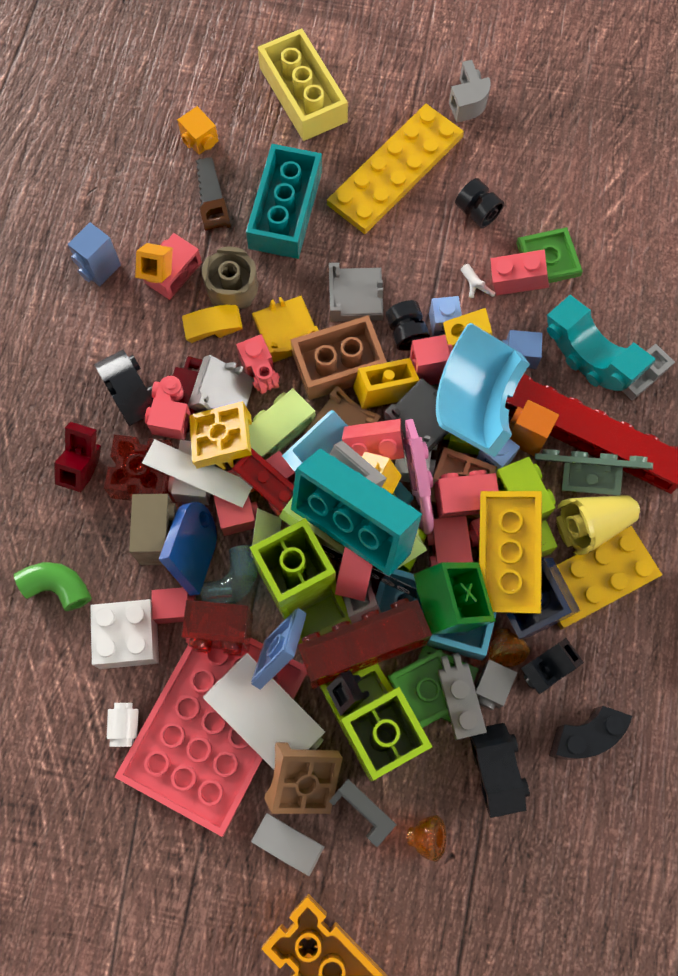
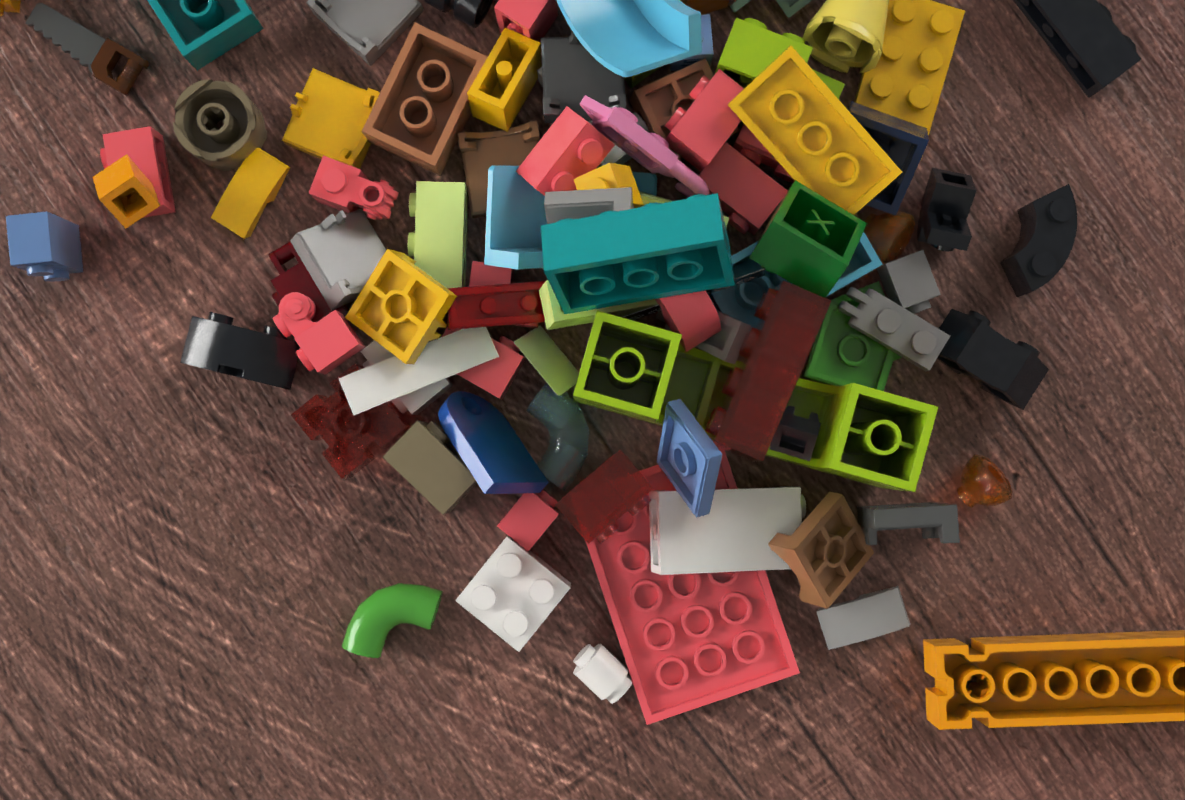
camera: 50 degrees left, 15 degrees up
(79, 459) = (275, 473): dark red brick -> none

